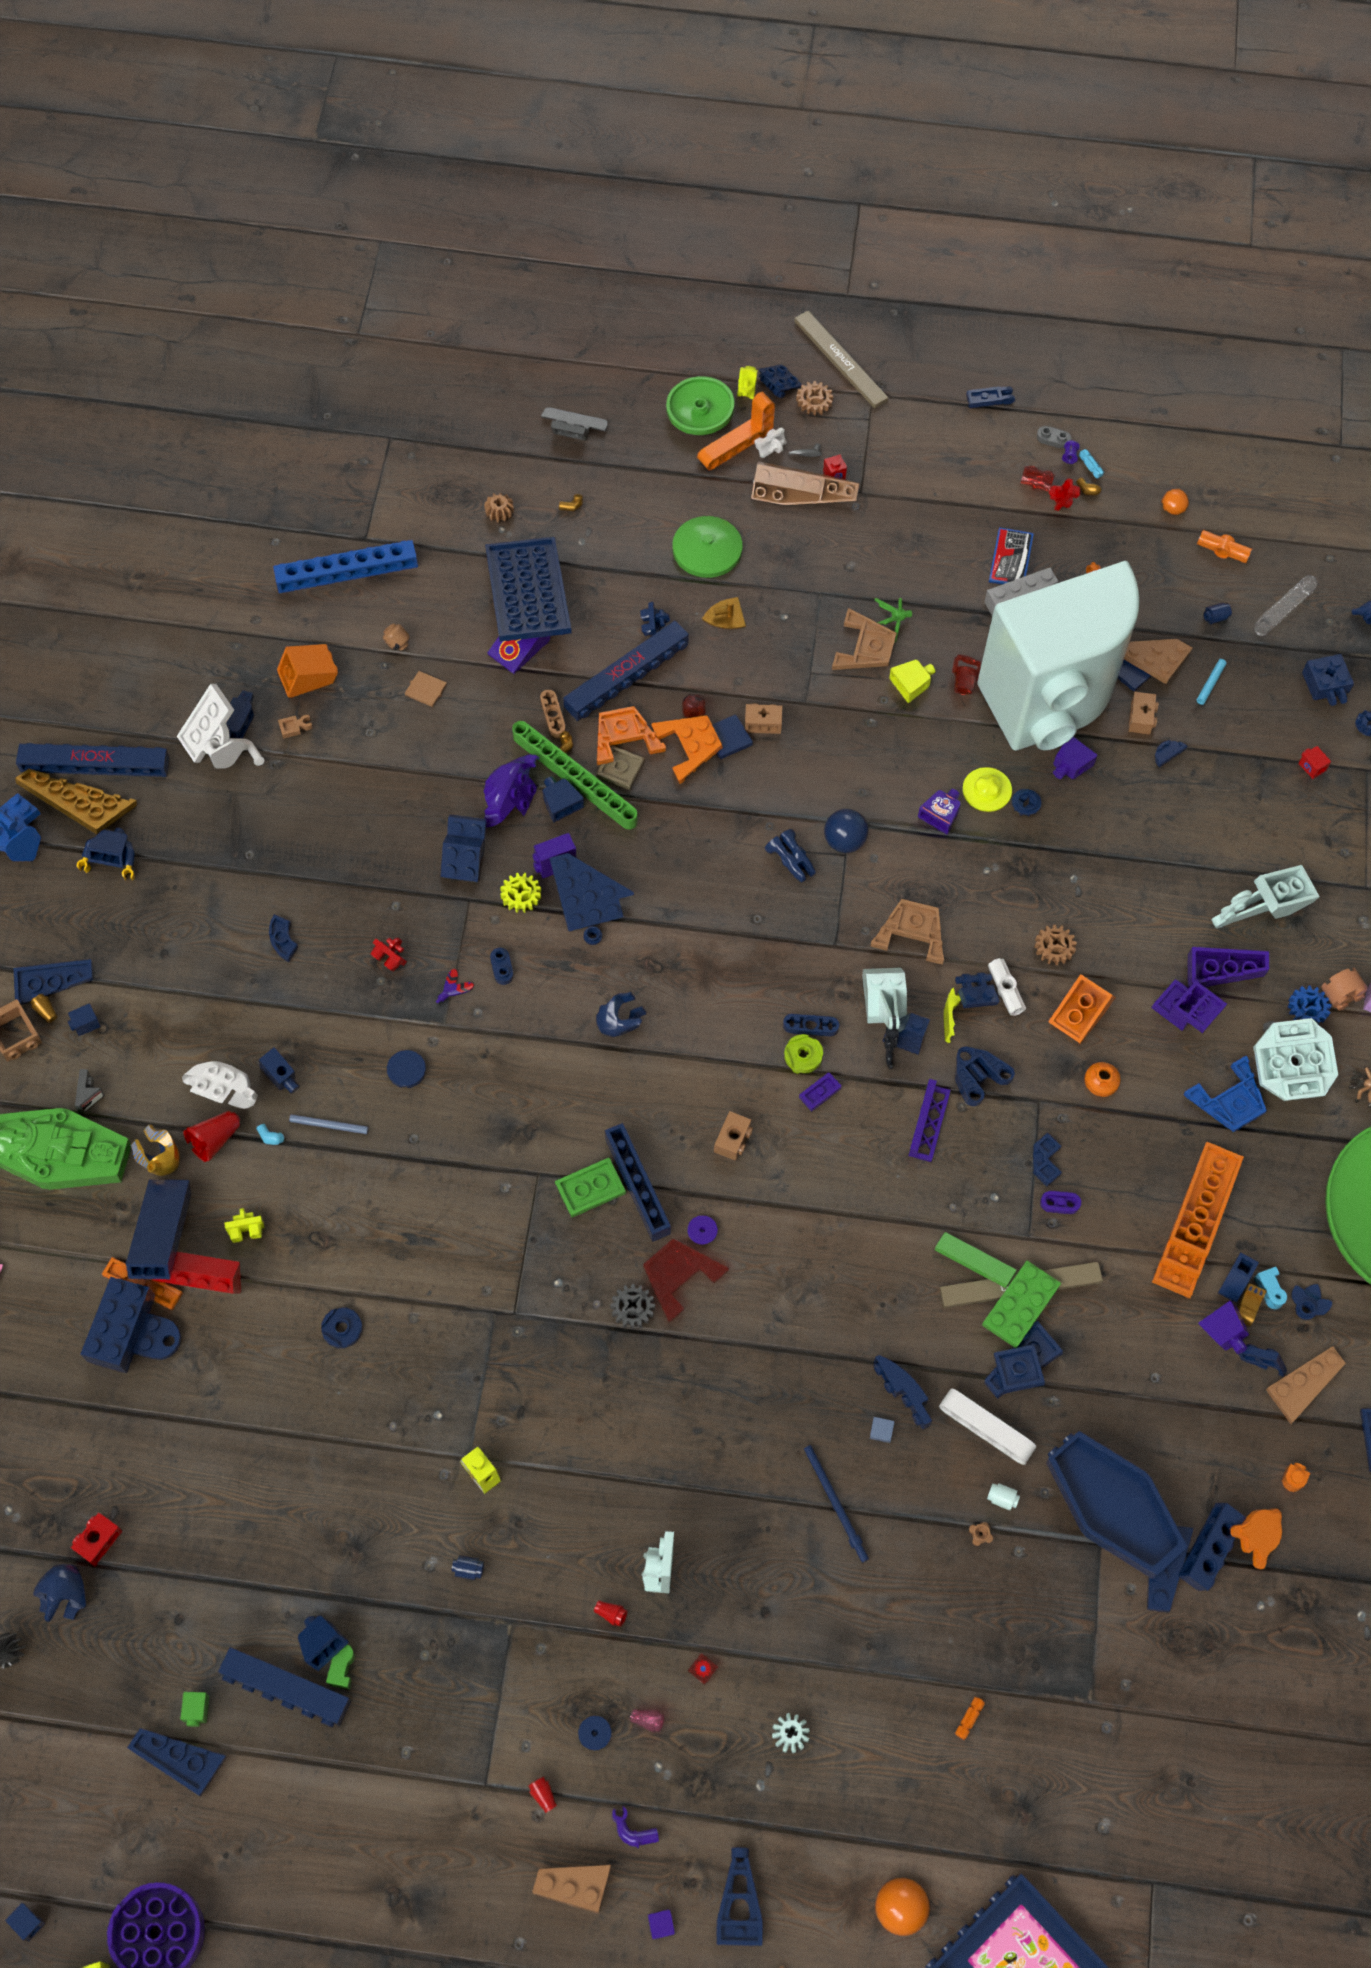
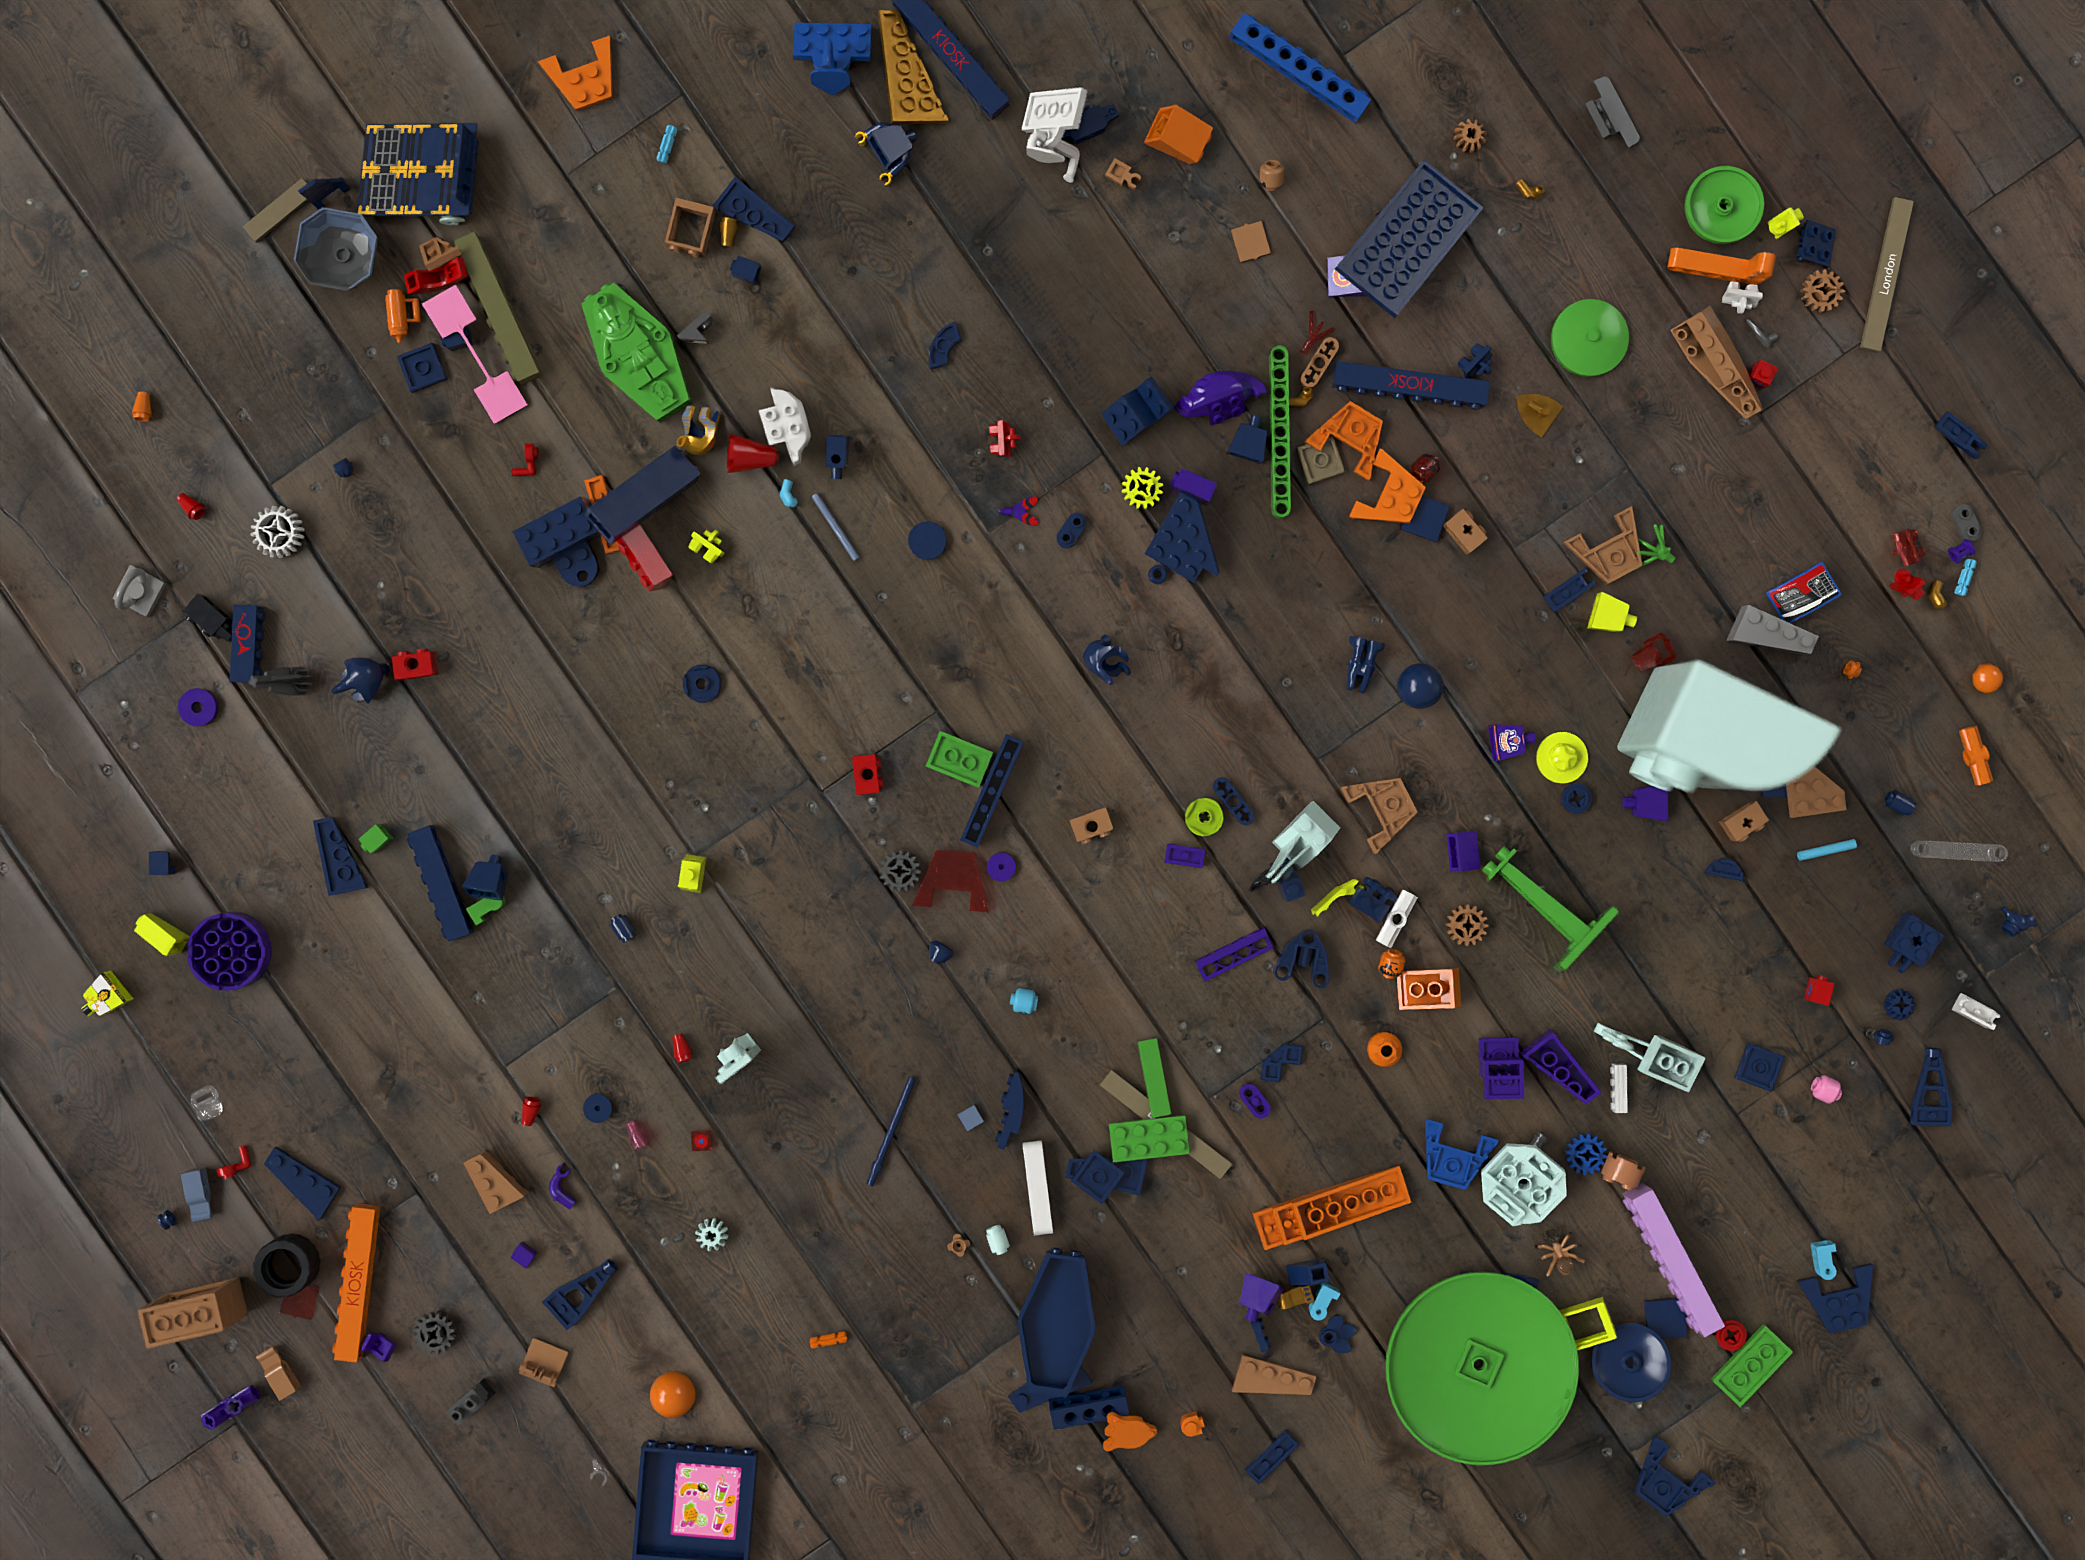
camera: 45 degrees right, 25 degrees up
(40, 1294) = (531, 454): none -> red plate
(532, 701) = (1313, 336): none -> clear red plant
(541, 1274) = (860, 764): none -> red brick
(725, 1332) = (939, 952): none -> dark blue cone
(824, 1304) = (1024, 1001): none -> medium azure head
(869, 691) = (1568, 591): none -> dark blue hinge
(996, 903) = (1463, 851): none -> dark purple brick
(1039, 1017) = (1391, 963): none -> orange head
(1097, 873) = (1563, 920): none -> bright green piece
(1276, 945) = (1619, 1088): none -> white piece
(1340, 844) = (1759, 1067): none -> dark blue tile

